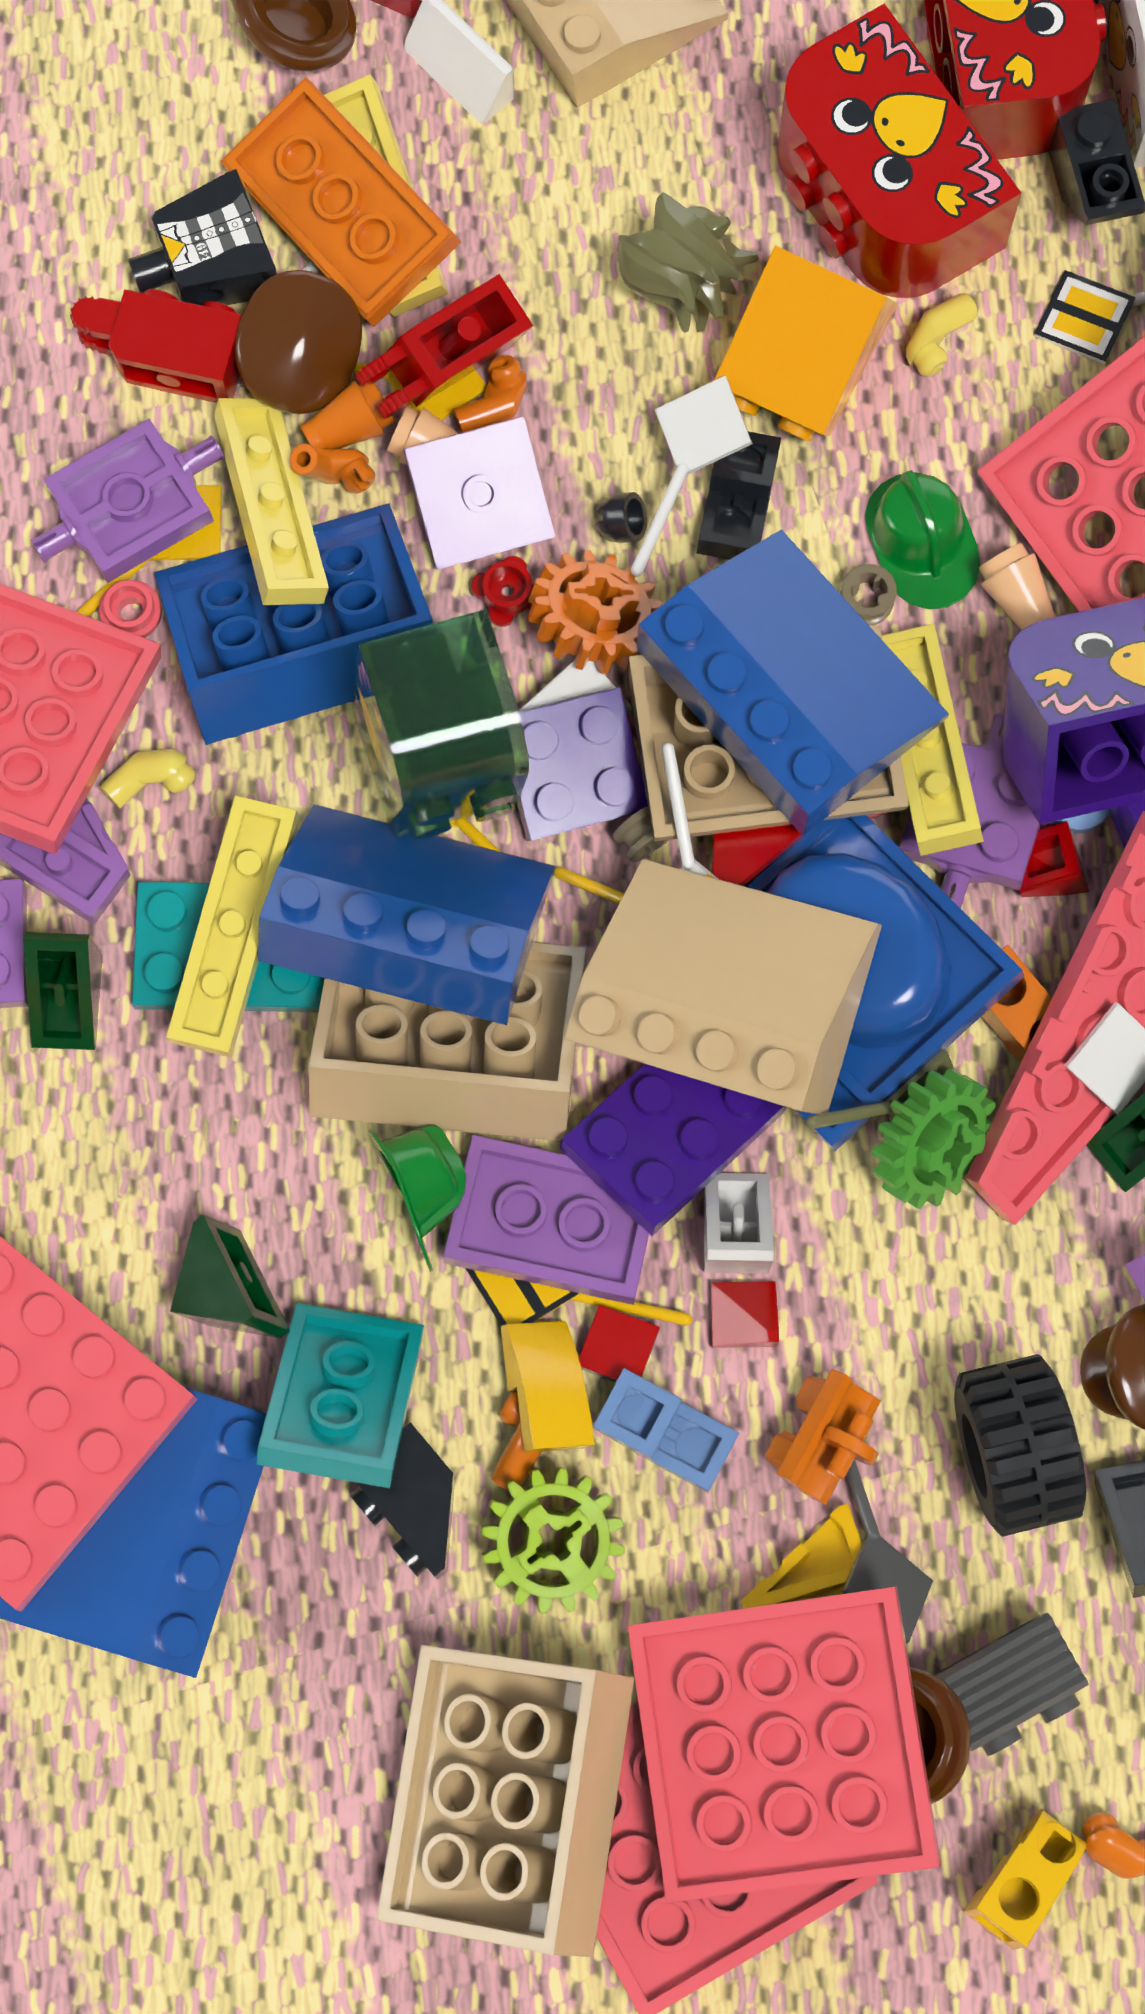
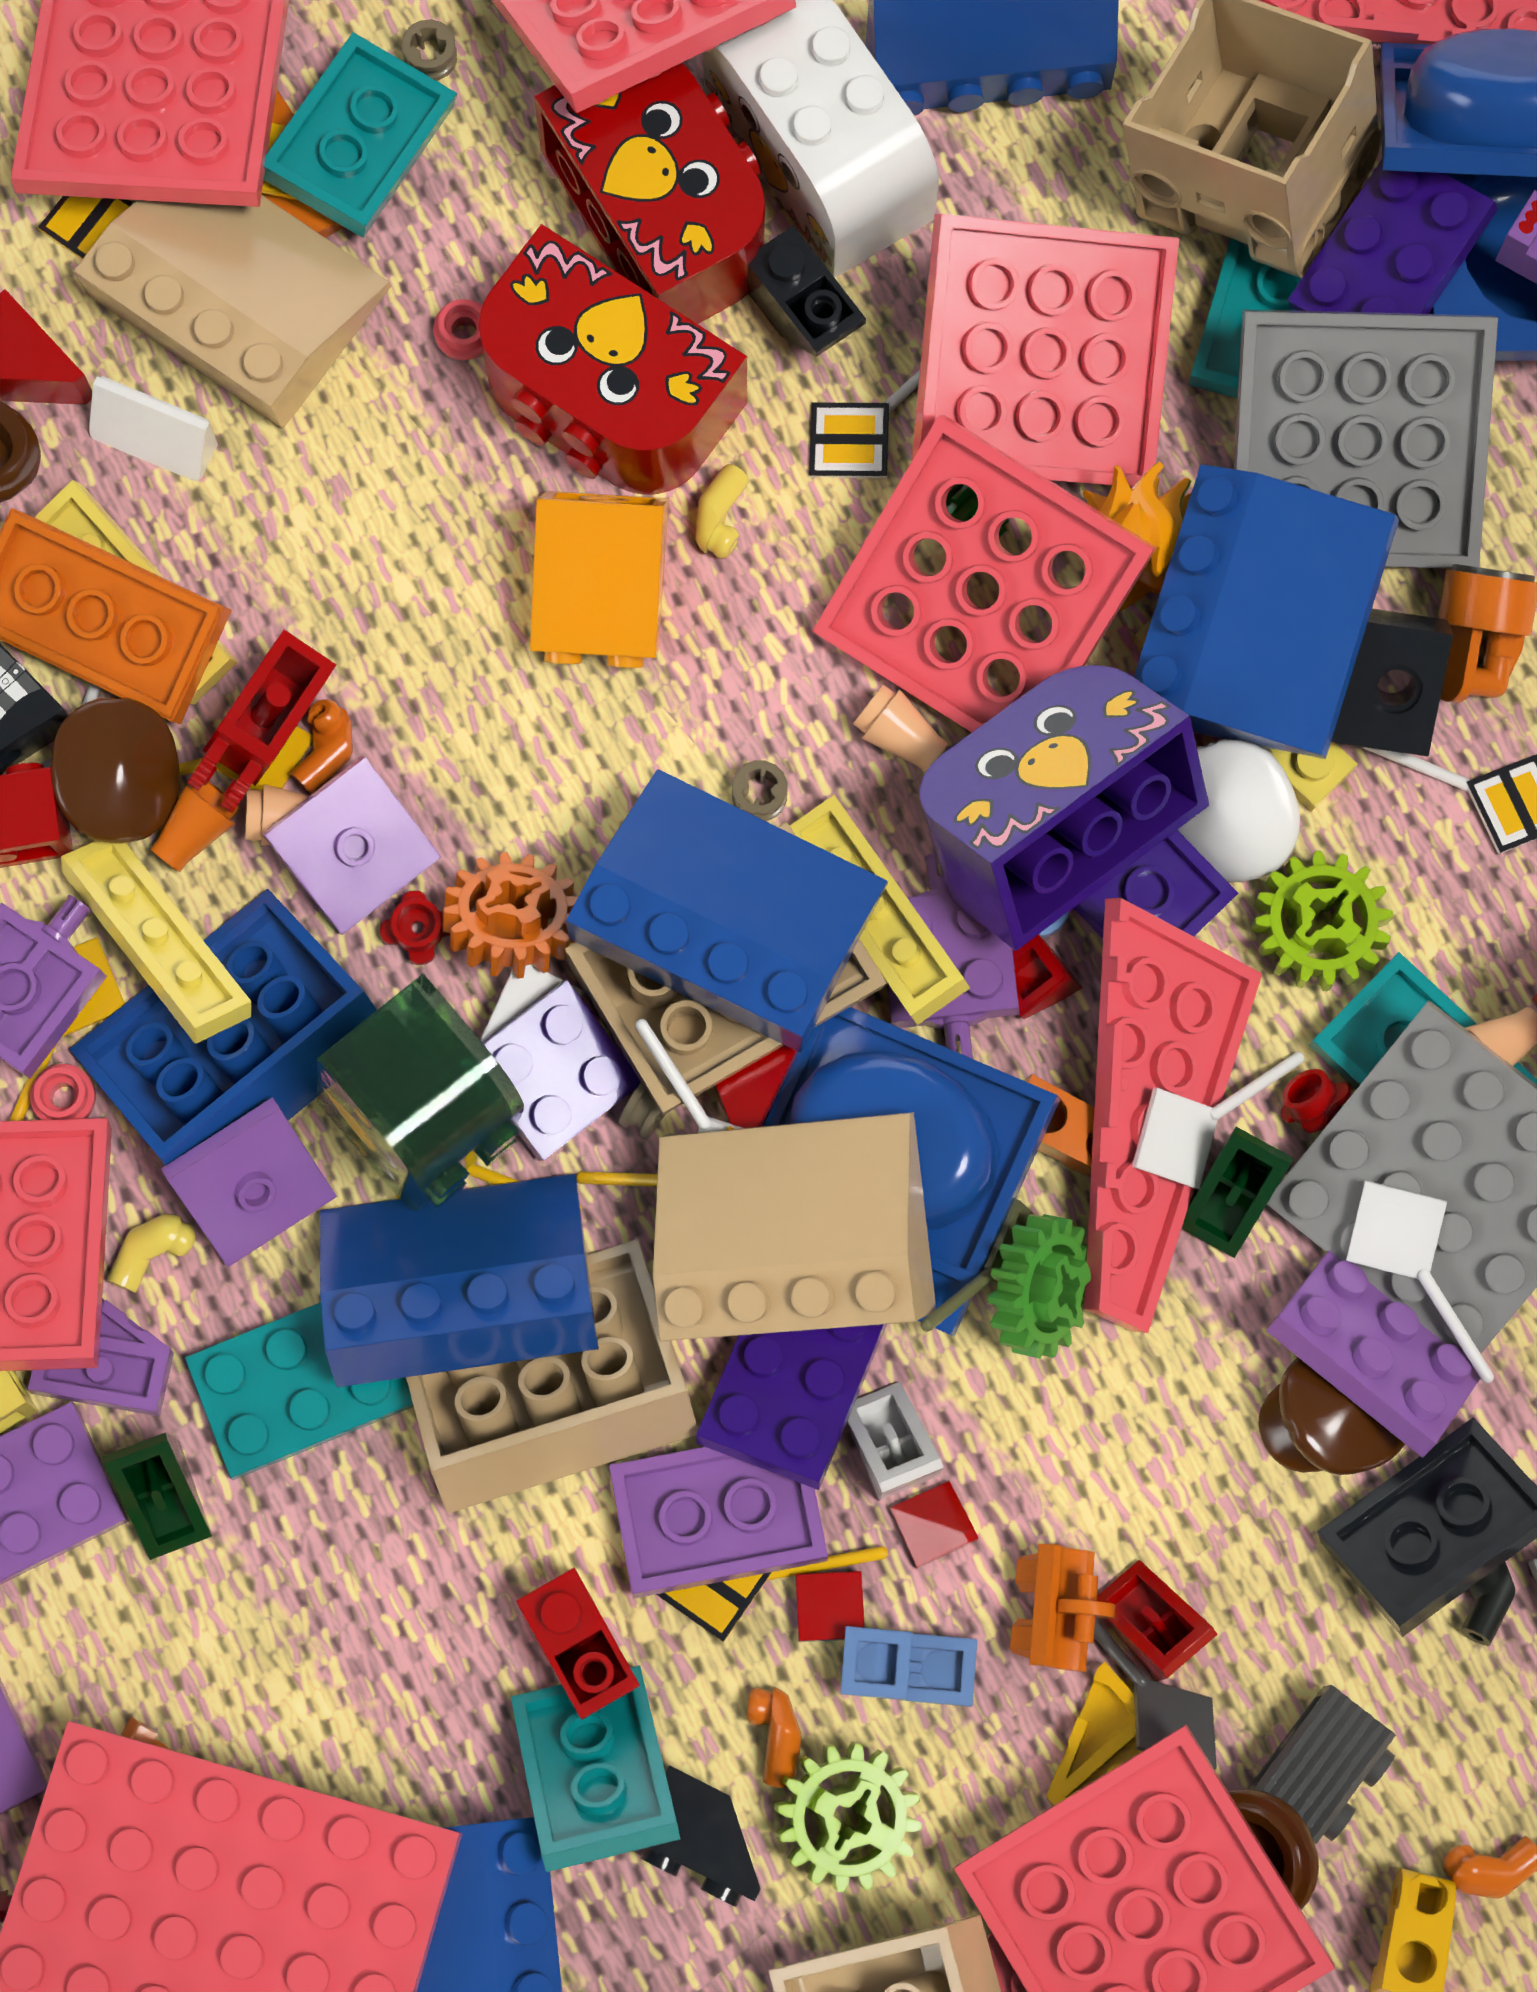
camera: 25 degrees left, 0 degrees up
(224, 1284) = (435, 1708): dark green slope -> none
(227, 934) = (296, 1366): light yellow plate -> none
(260, 747) = (249, 1182): none -> medium lavender plate
(333, 466) = (200, 875): orange arm -> none
(375, 1278) = (578, 1643): none -> red slope
(426, 1174) = (582, 1522): green piece -> none
(549, 1386) = (783, 1671): yellow slope -> none
(622, 518) = (497, 812): black hinge -> none
(683, 261) = (452, 543): olive hair -> none
(698, 432) = (538, 701): white piece -> none
(739, 498) = (597, 744): black slope -> none
(769, 66) = (448, 319): none -> coral plate
(909, 1487) = (1155, 1621): none -> red slope
(923, 539) = (788, 715): green piece -> none
(1020, 1445) = (1241, 1541): black tyre -> none

